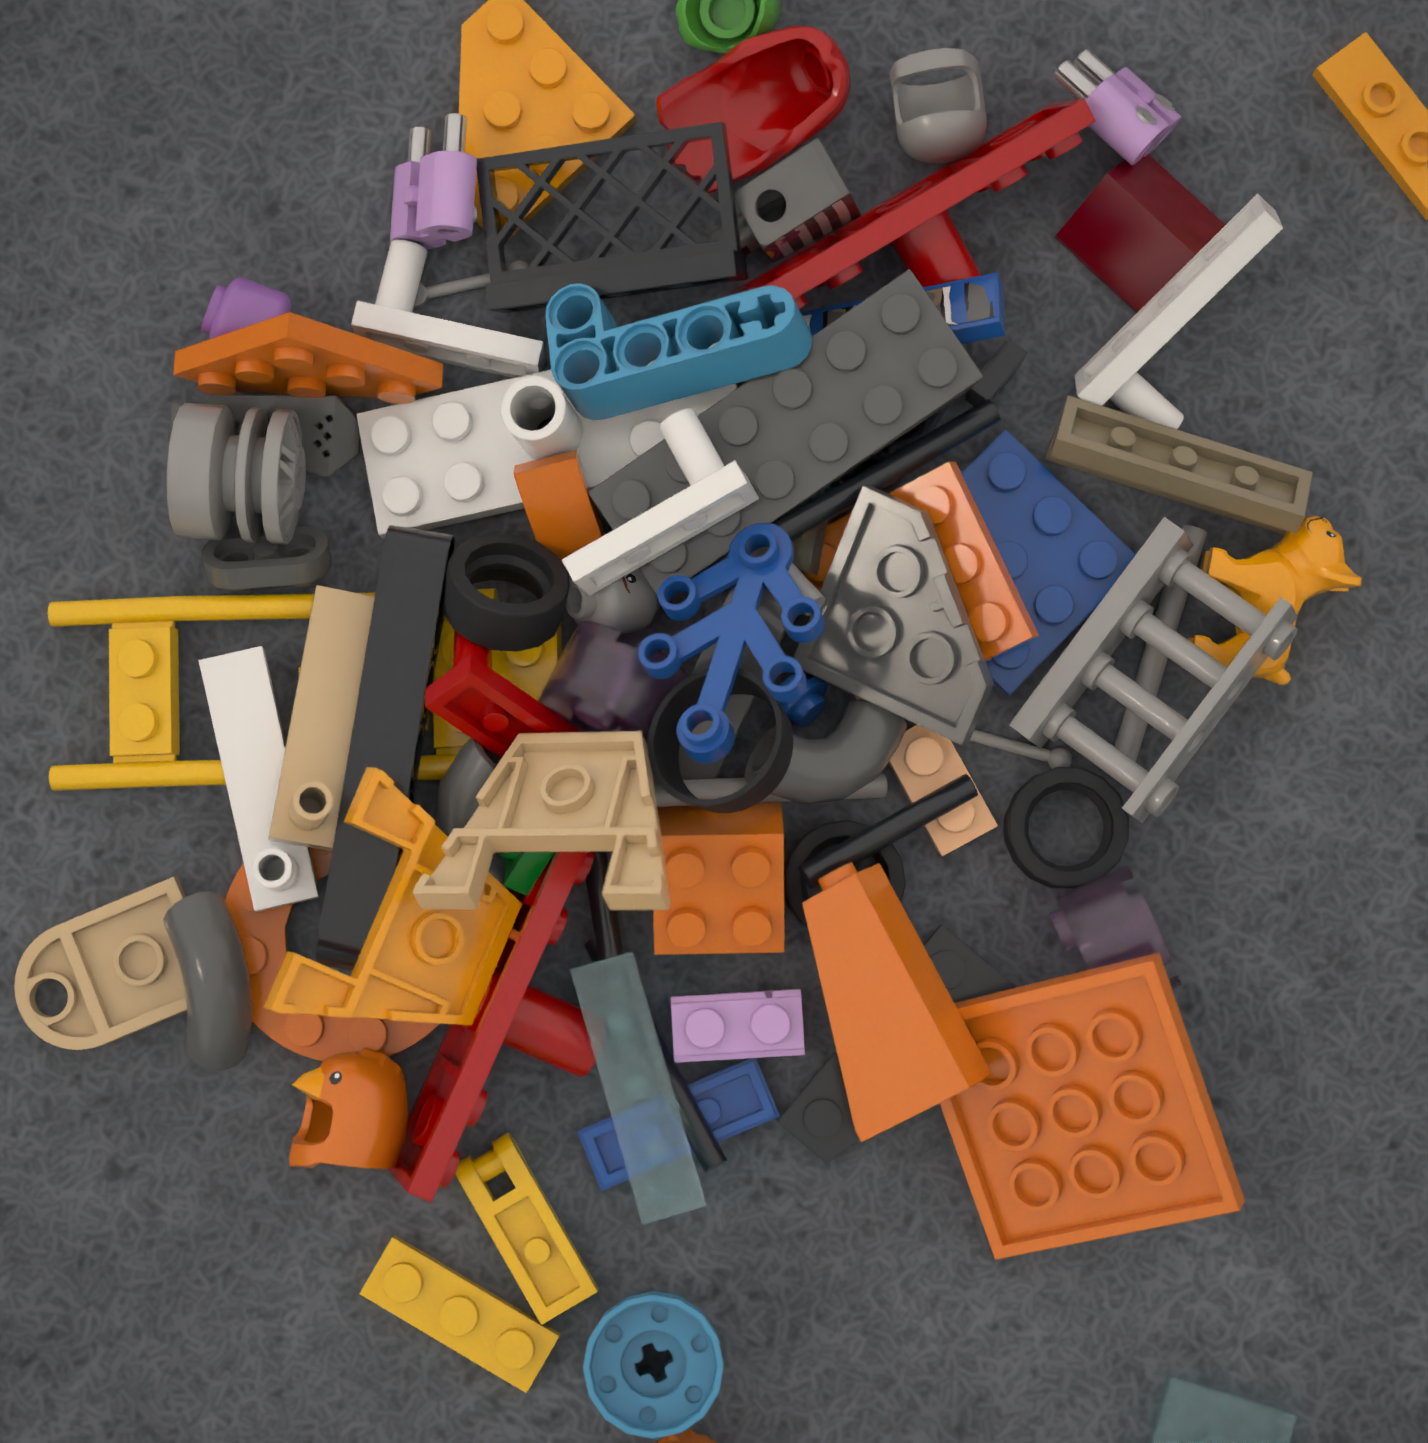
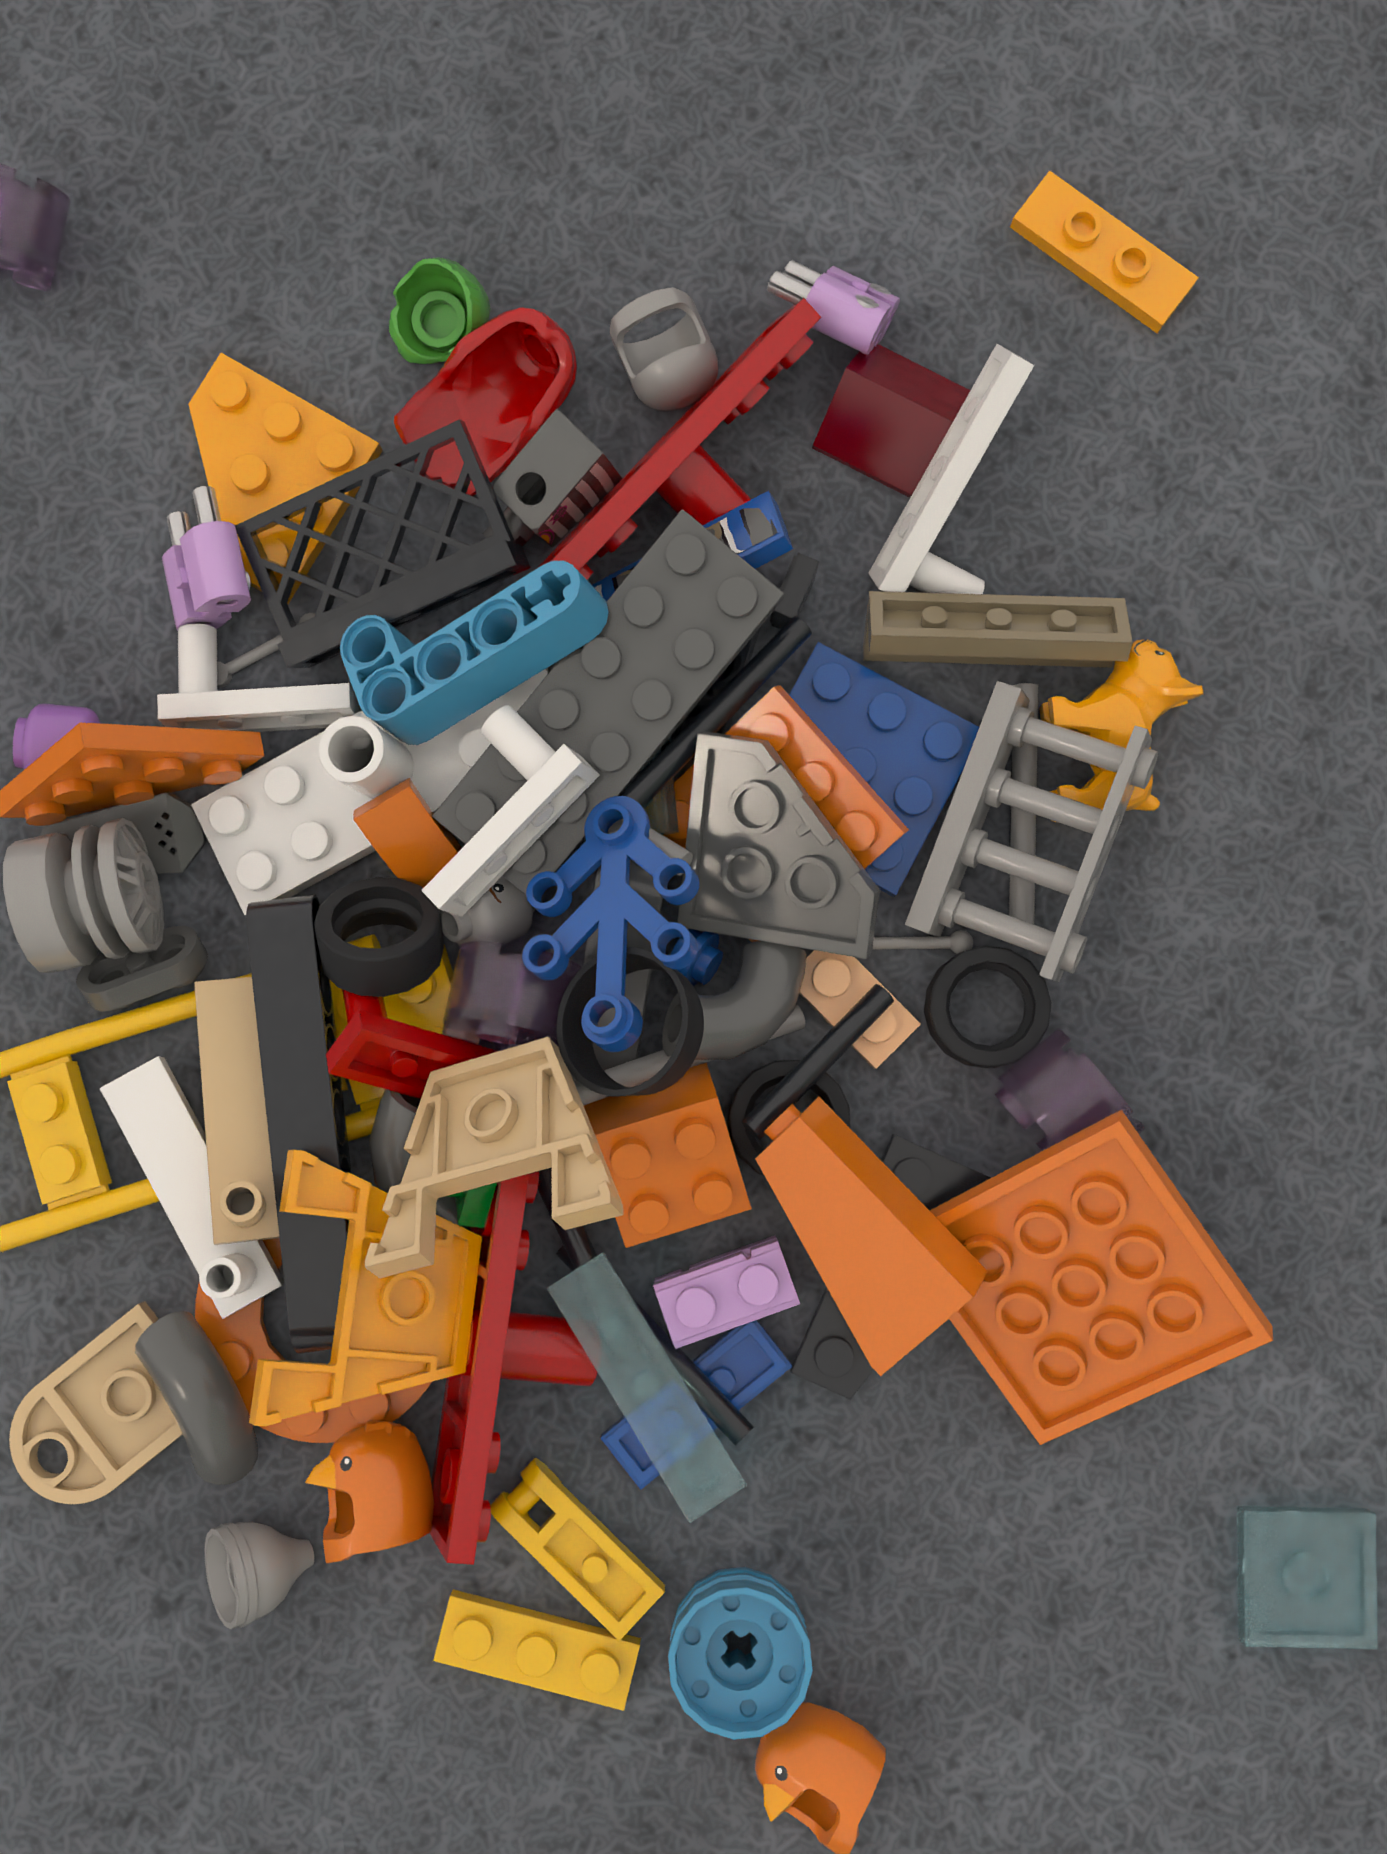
camera: 15 degrees left, 0 degrees up
(212, 1156) = (252, 1569): none -> light grey helmet

